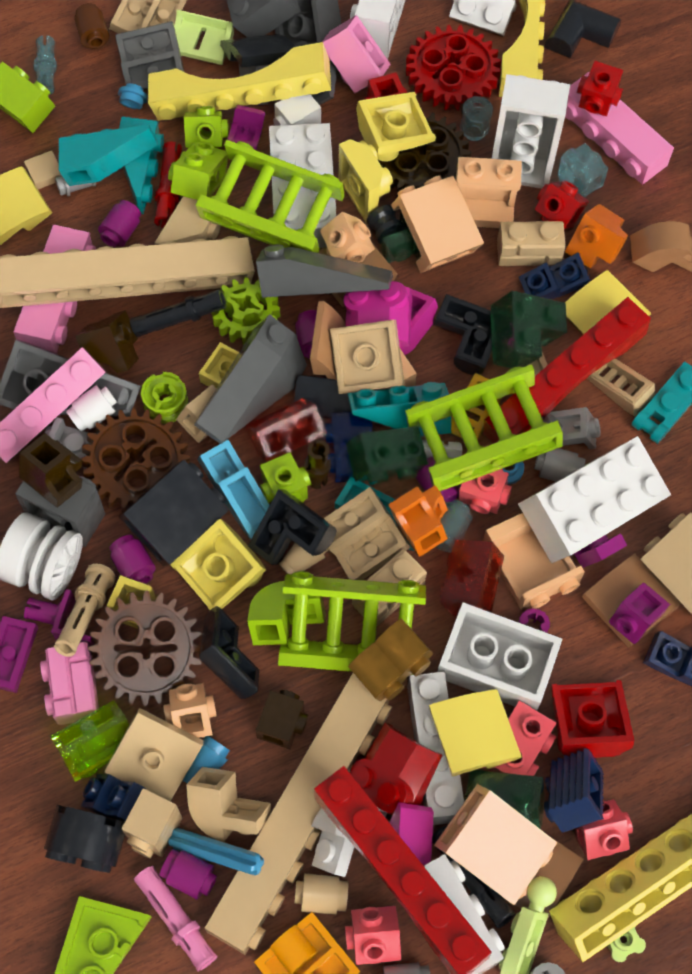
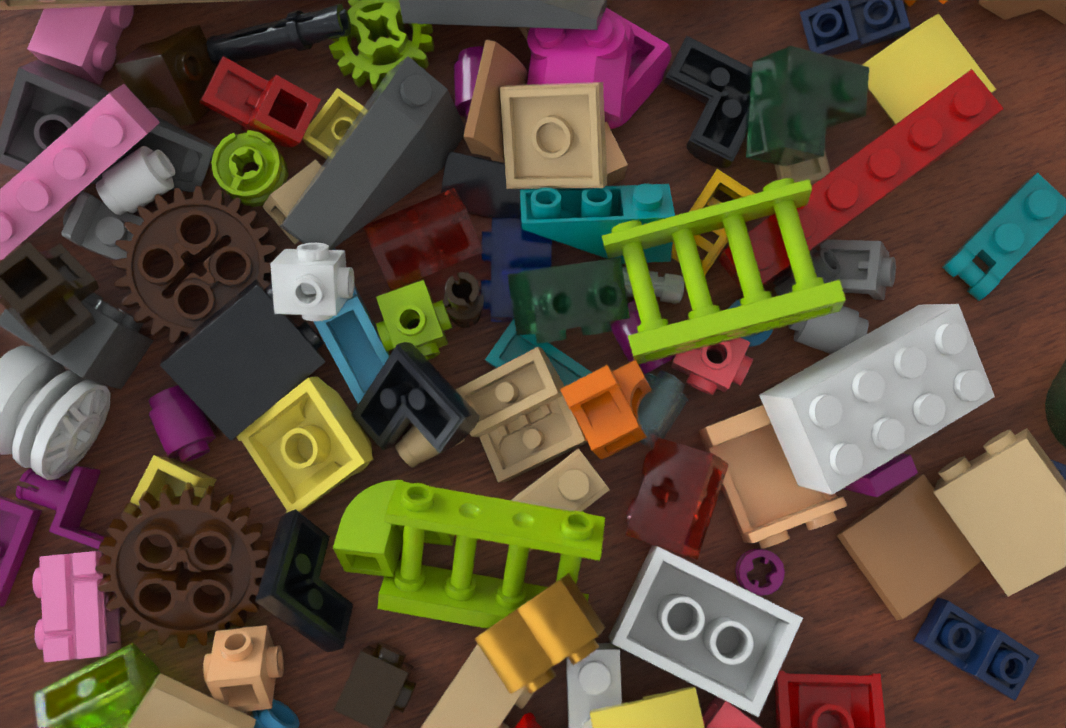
camera: 10 degrees right, 15 degrees up
(70, 637) = (109, 481): tan pin -> none
(181, 357) = (260, 105): none -> red brick
(209, 464) = (311, 281): none -> white brick
(634, 397) = (936, 223): tan slope -> none
(638, 612) = (923, 579): magenta bracket -> none

